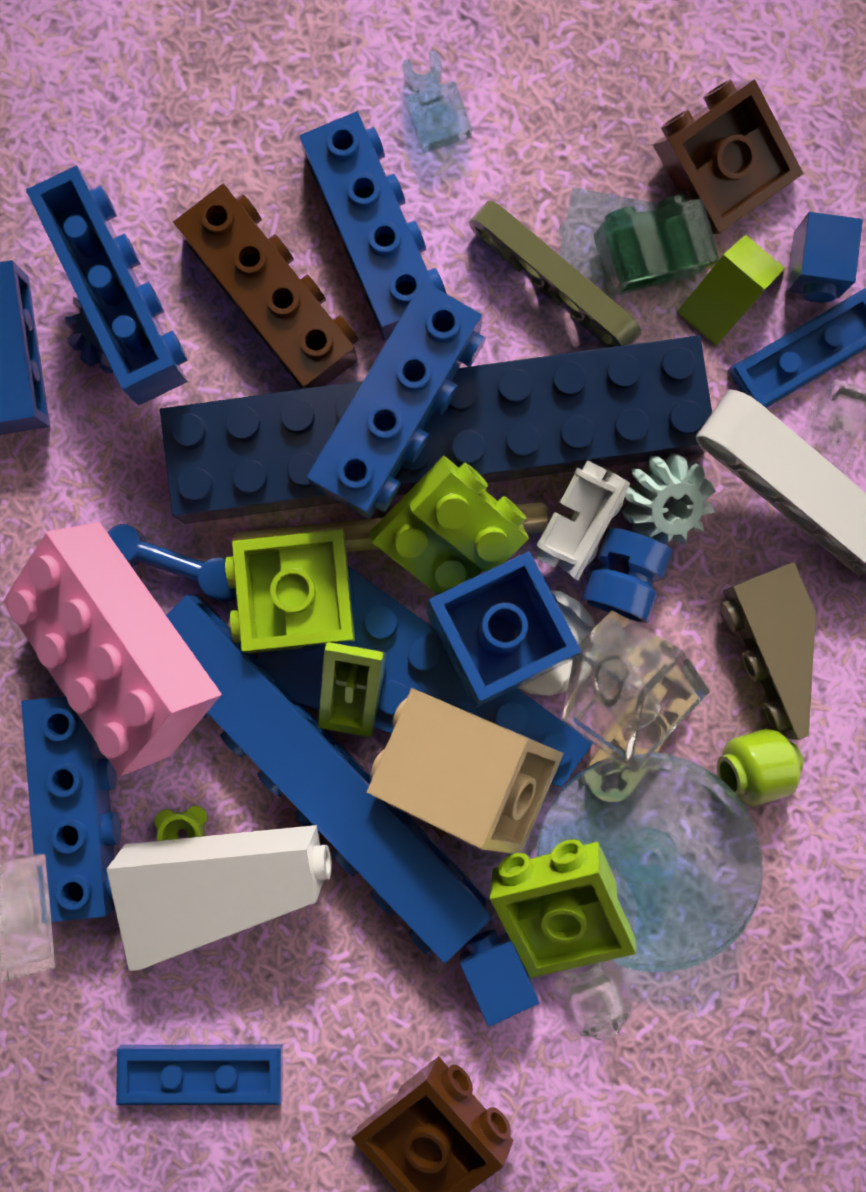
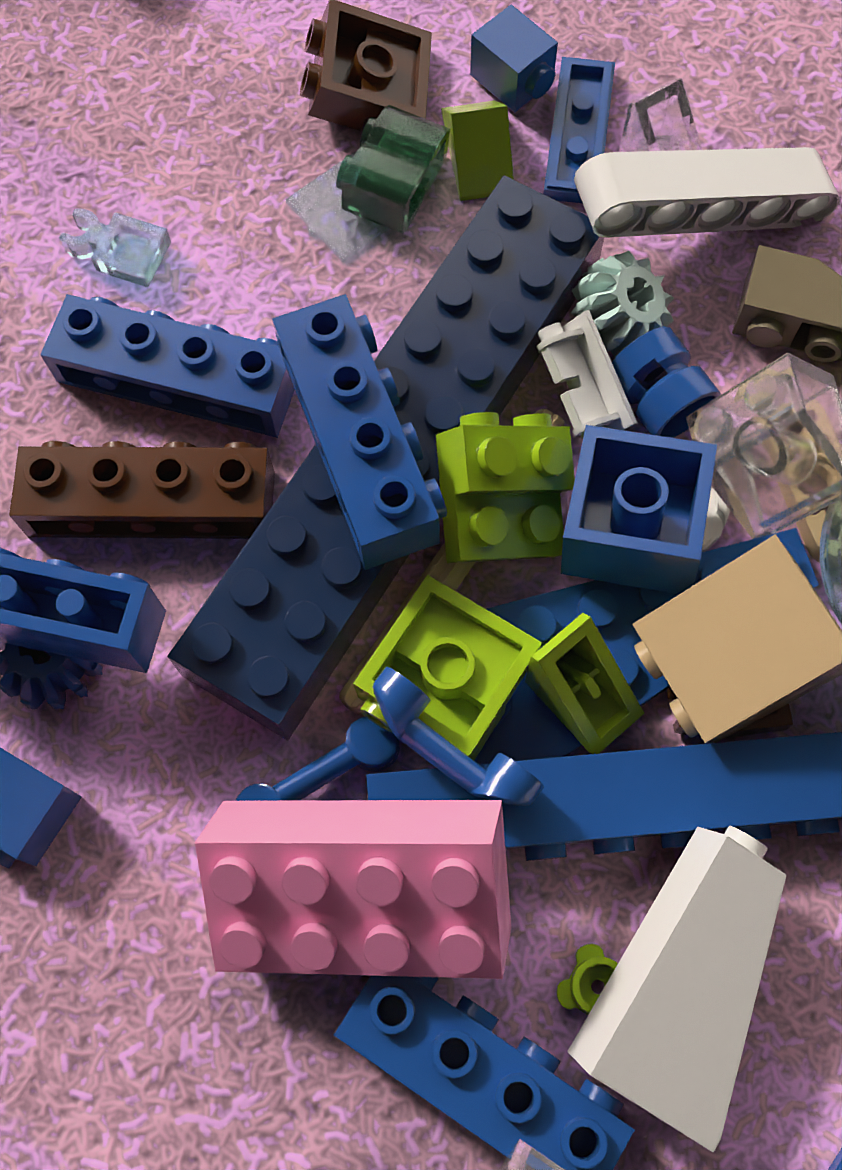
camera: 55 degrees left, 15 degrees down
(239, 685) = (502, 780): none -> blue bar
(554, 275) = (291, 265): olive beam -> none

